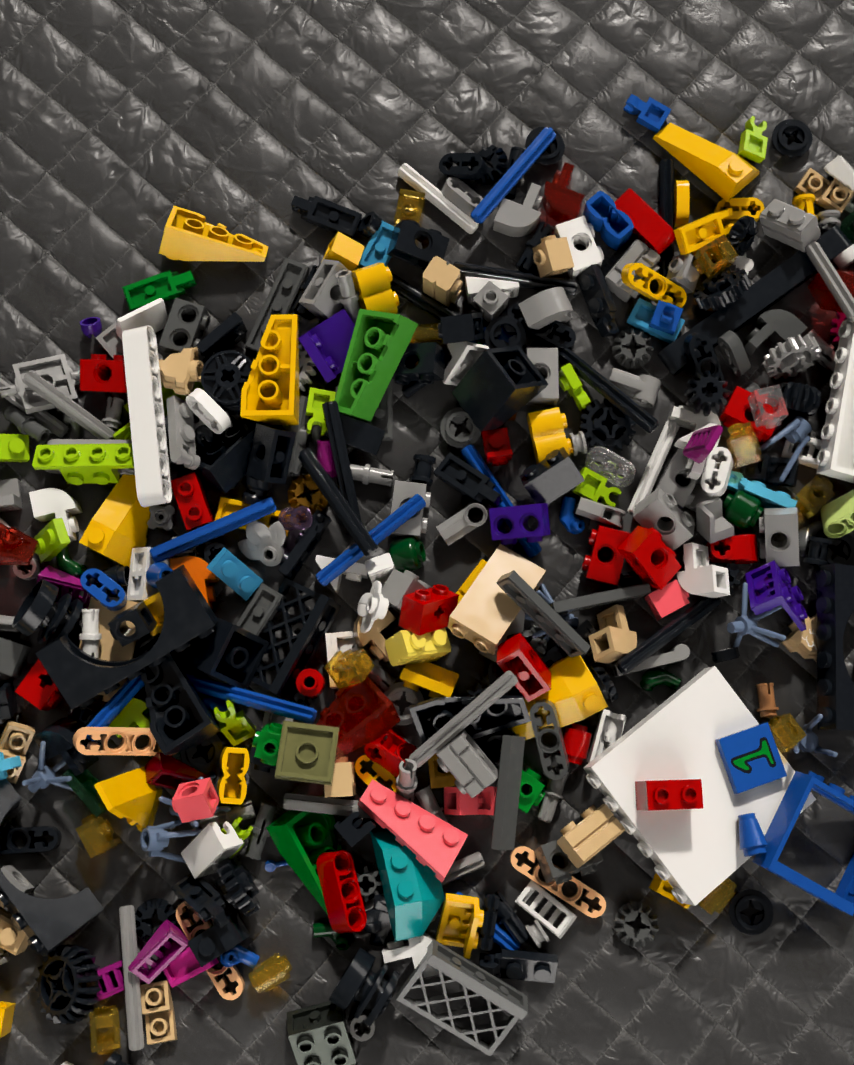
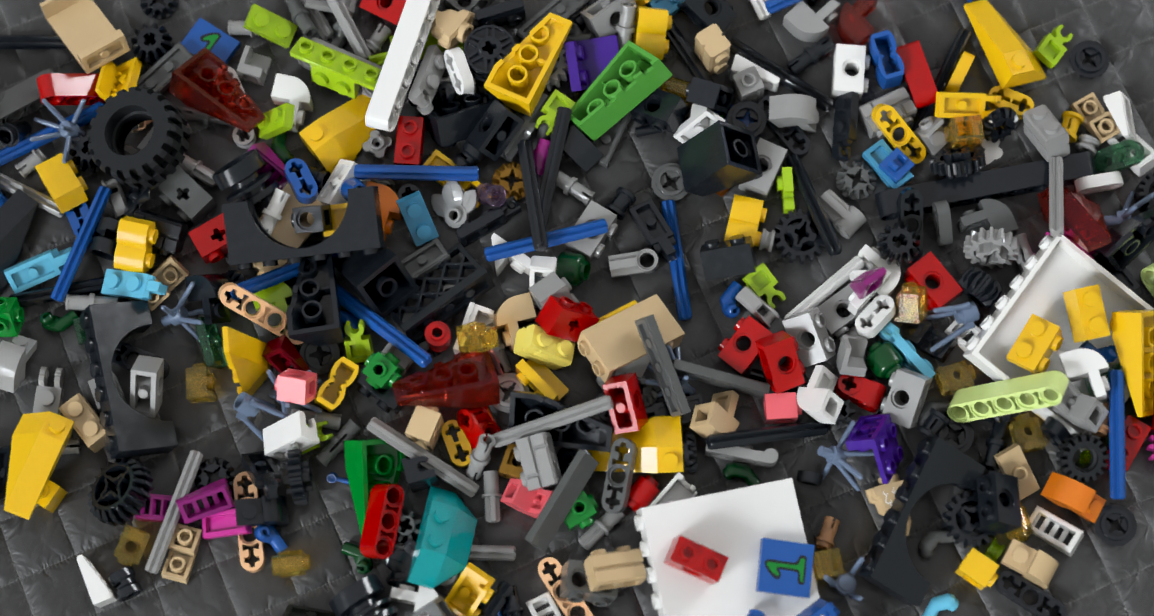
camera: 25 degrees right, 5 degrees down
(44, 865) = (147, 385): none -> light grey brick
(307, 753) = (407, 386): olive tile -> none
(372, 607) = (519, 294): white plate -> none
(425, 834) = (474, 504): coral wing -> none
(497, 446) = (695, 212): red bracket -> none
(519, 518) = (683, 278): dark purple brick -> none
(552, 256) = (820, 69): tan brick -> none
(611, 466) = (786, 271): clear plate -> none
(772, 396) = (949, 269): clear brick -> none

